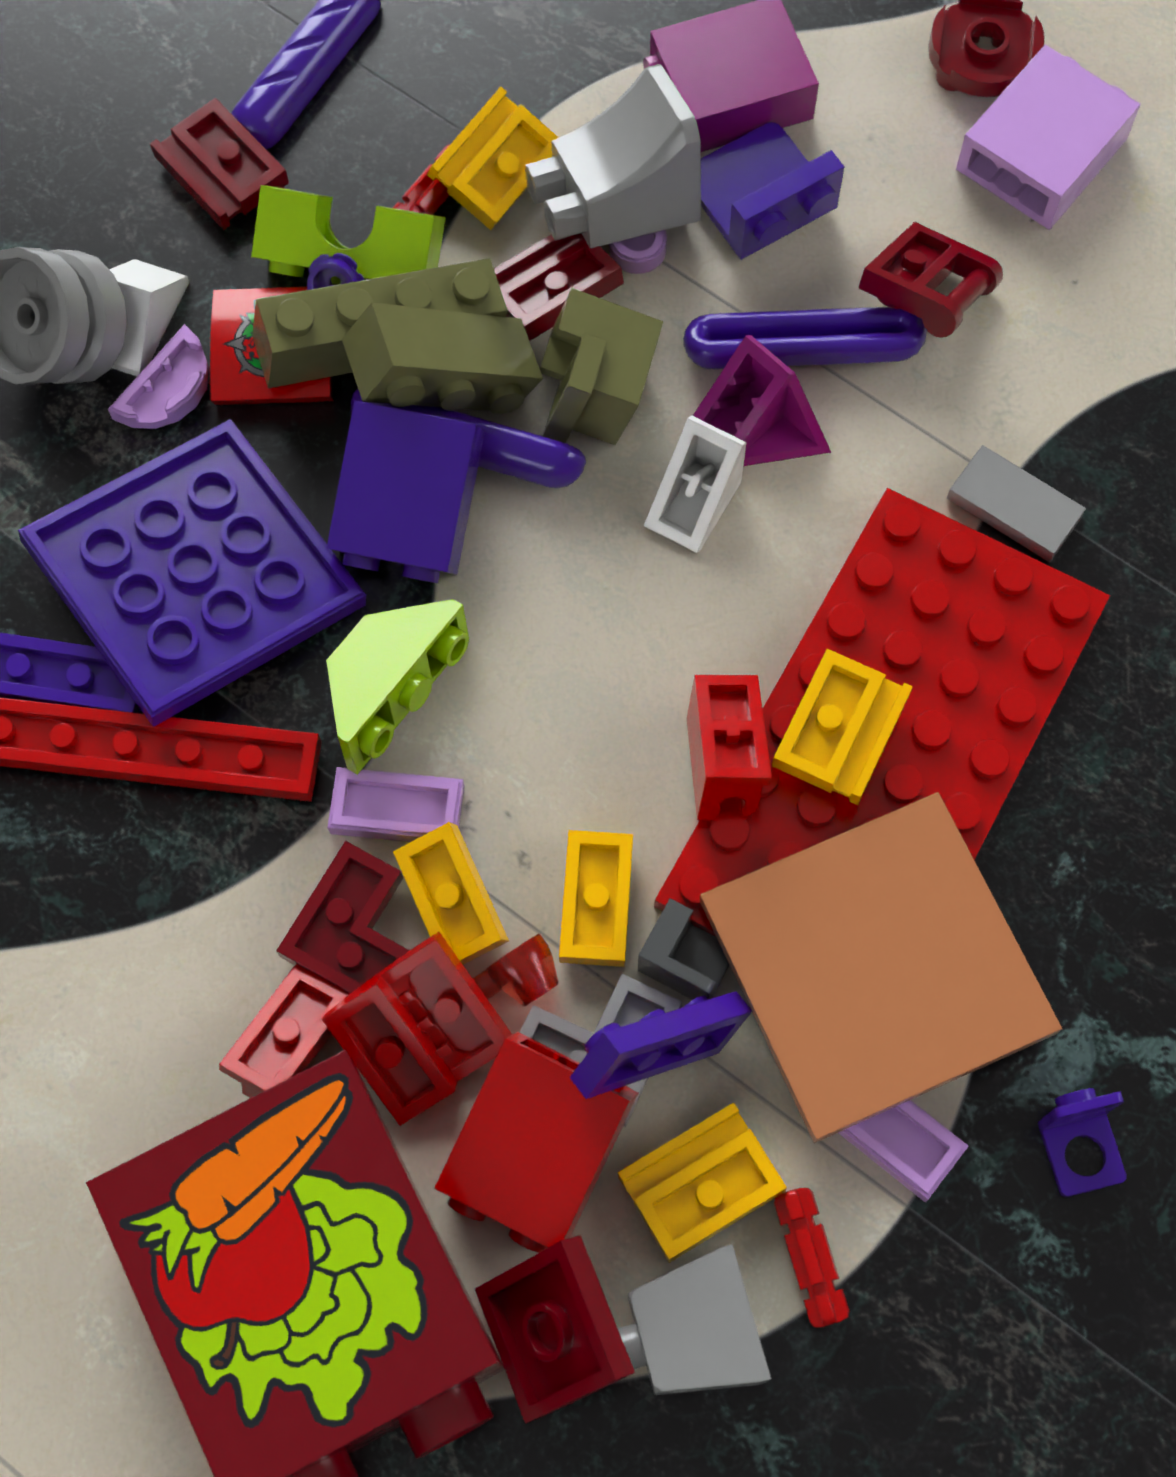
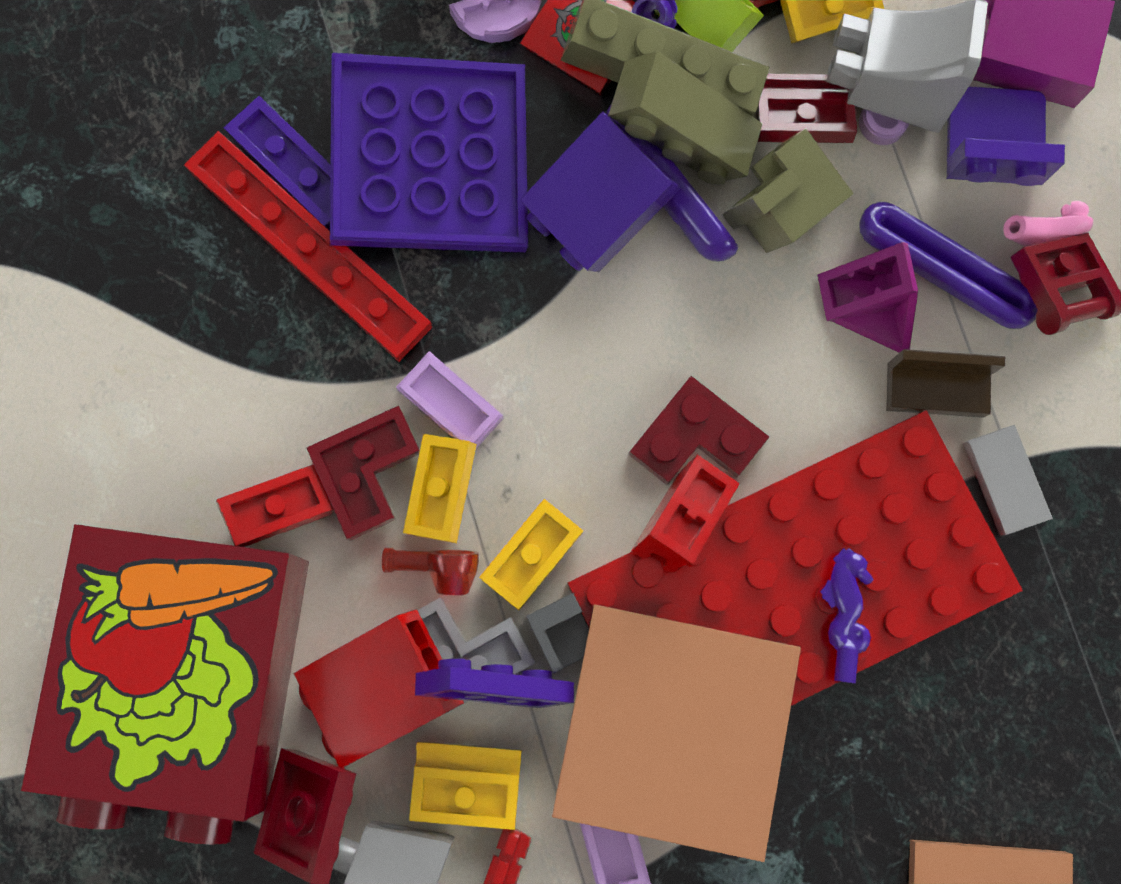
camera: 30 degrees right, 10 degrees up
(388, 671) = (501, 311): slope -> none
(418, 1028) = (358, 561): red slope -> none
(668, 651) = (695, 421): none -> dark red plate
(697, 484) = (797, 321): white slope -> none
(841, 726) = (770, 557): yellow plate -> none
(855, 254) = (1037, 230): none -> bright pink arm
(881, 451) = (941, 382): none -> dark brown panel
(940, 713) = (843, 592): none -> dark purple animal

